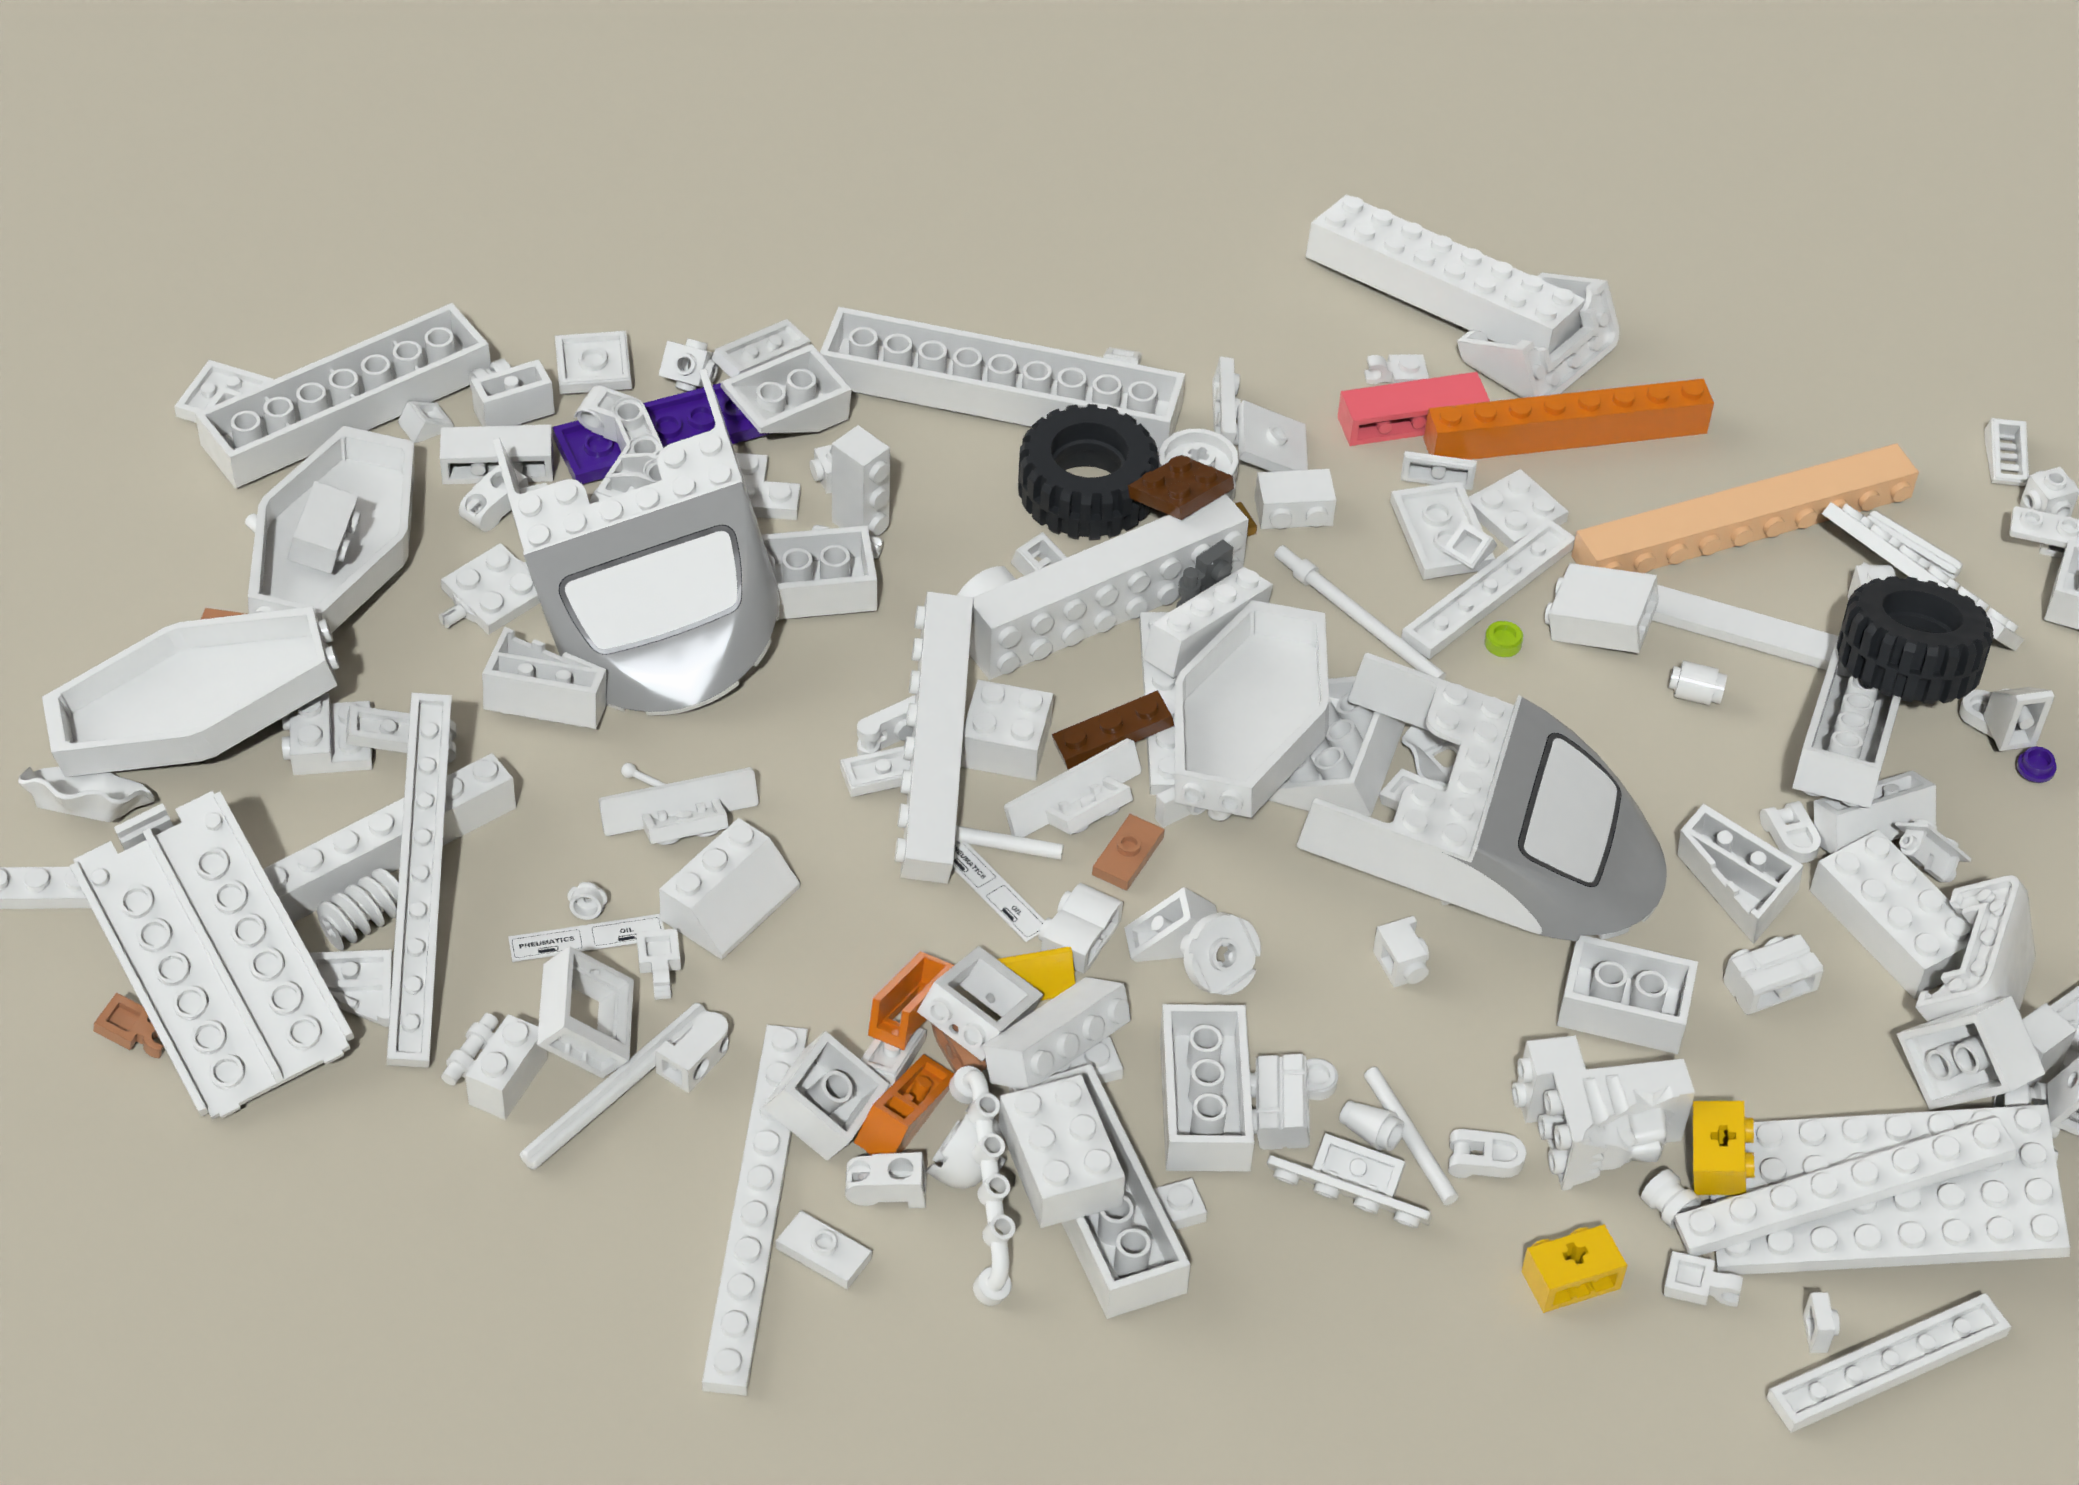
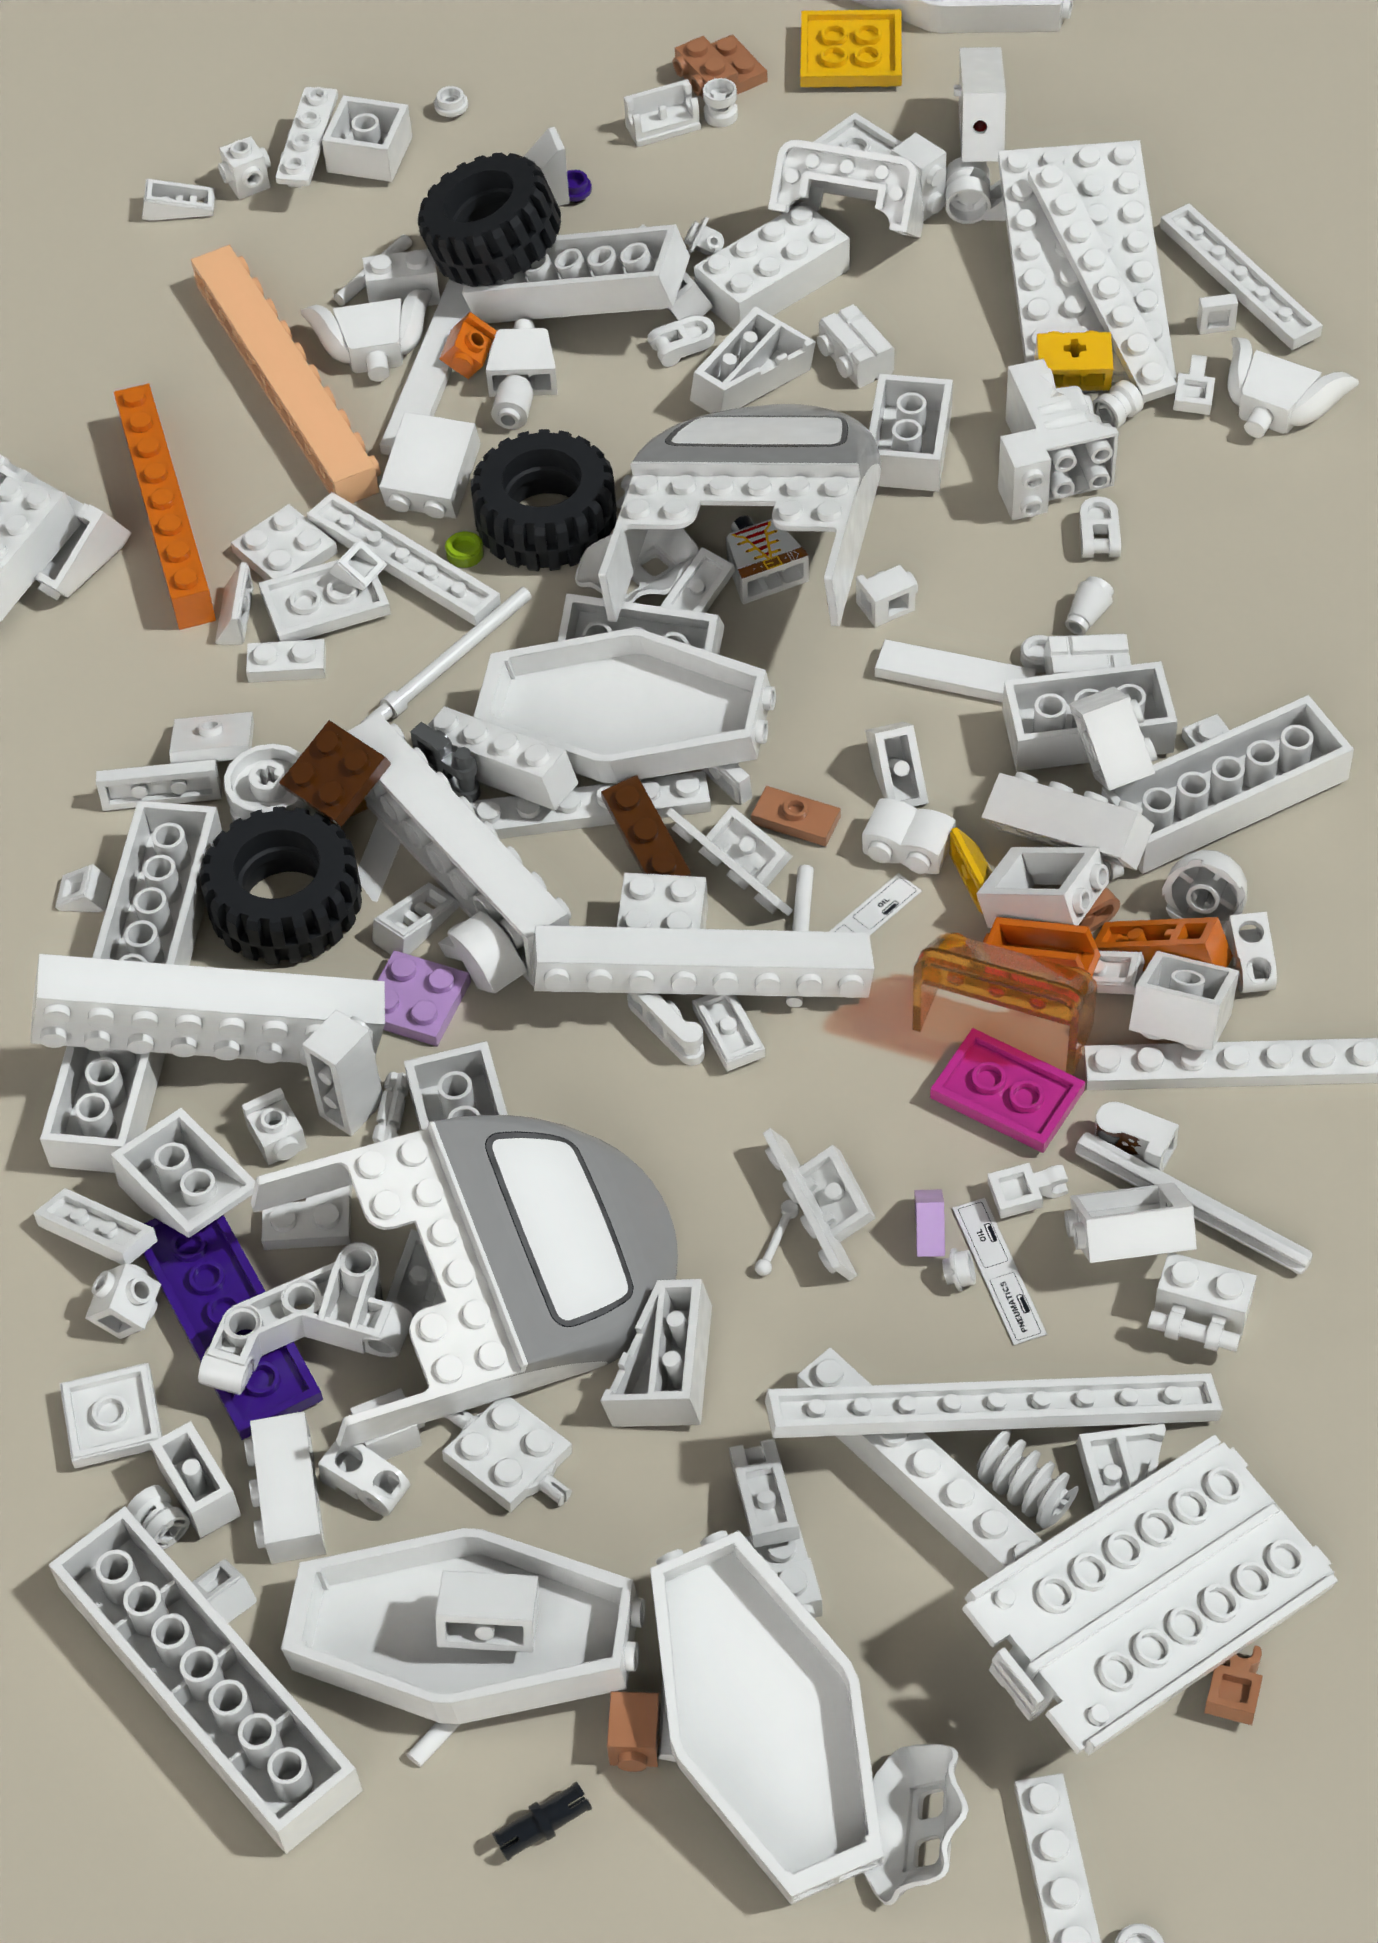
camera: 90 degrees left, 5 degrees up
(171, 581) = (542, 1821): none -> black pin
(214, 385) = (183, 1852): white plate -> none
(636, 876) = (929, 1223): none -> lavender piece
(727, 889) = (921, 1142): white slope -> none
(770, 962) = (1007, 1090): none -> dark pink plate
(823, 1249) = (1337, 1000): white plate -> none
(844, 940) = (1009, 981): none -> clear orange windscreen
(925, 394) = (192, 1008): none -> white brick
(958, 559) = (421, 996): none -> lavender plate
(971, 1086) = (1341, 861): white bar -> none
(1061, 1151) = (1229, 783): white brick -> none
(1135, 1060) = (1113, 737): none -> white brick
(1201, 950) = (935, 721): white plate -> none
(1295, 499) = (293, 709): white brick -> none
(1297, 998) = (946, 670): none -> white tile
(1355, 1173) = (1152, 609): white bracket -> none
(1371, 504) = (286, 660): none -> white plate
(1397, 368) = (84, 646): white plate -> none
(1402, 407) = (150, 629): coral brick -> none
(1412, 1137) = (1068, 592): white bar -> none
(1558, 652) = (537, 466): none -> black tyre
(1573, 1267) = (1207, 463): yellow brick -> none
(1684, 1352) = (1280, 392): none -> white torso
(1759, 695) = (524, 353): none -> white torso
(1784, 660) = (468, 345): none -> orange brick
(1798, 581) = (371, 334): none -> white torso
(1914, 565) = (353, 249): white plate -> none
(1936, 556) = (306, 264): white axle -> none
(1971, 1054) = (954, 196): white slope -> none

